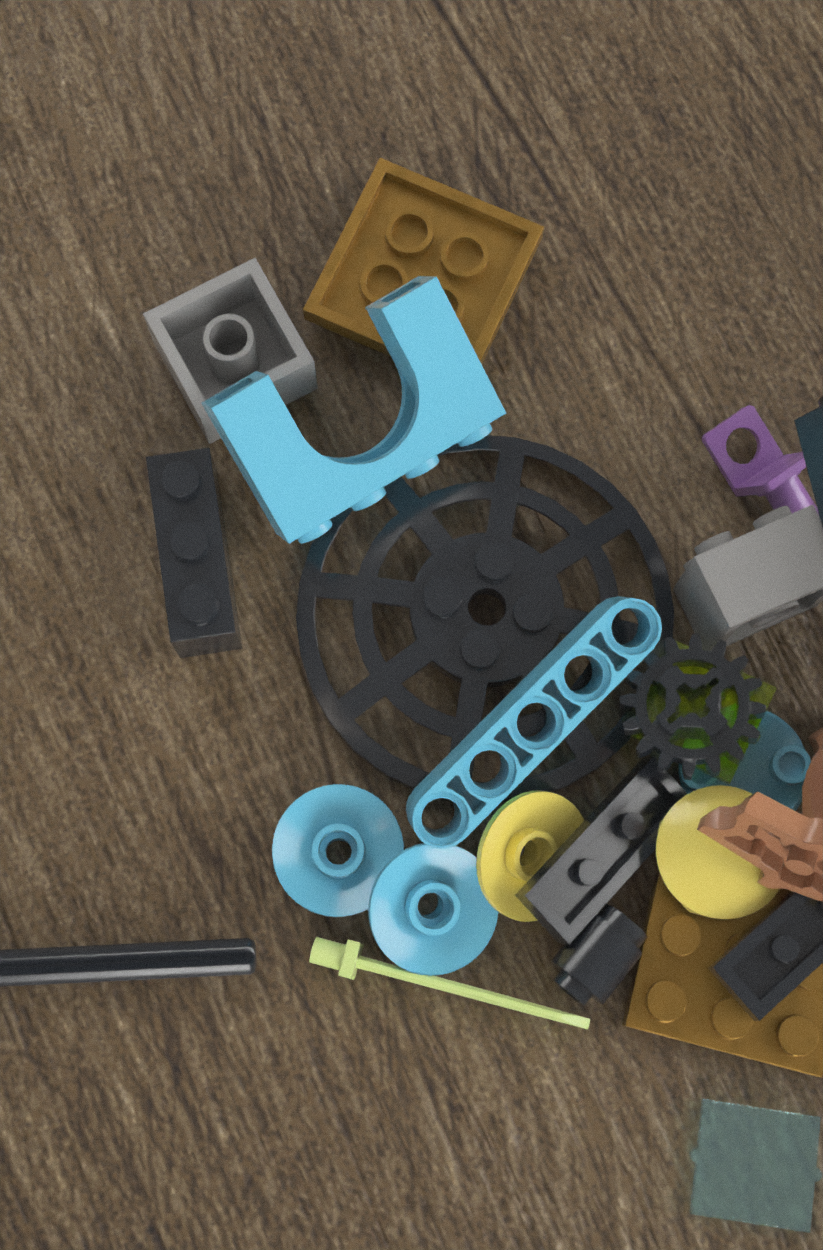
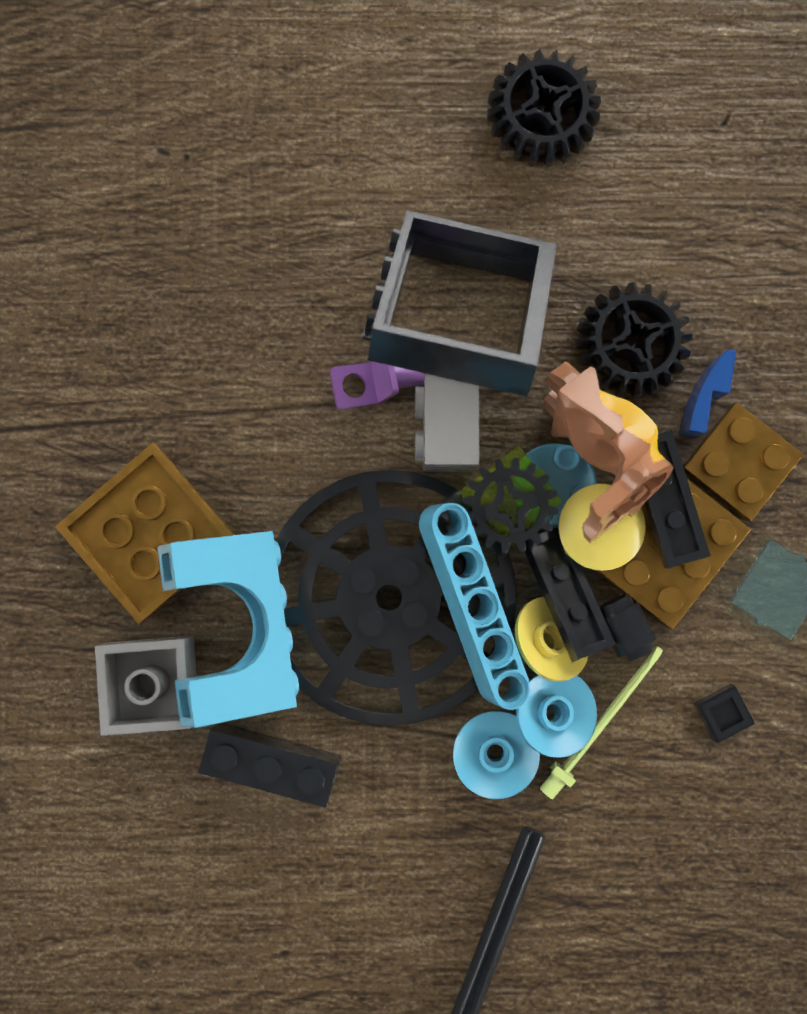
camera: 65 degrees left, 10 degrees up
(540, 1160) = (724, 713): none -> black tile

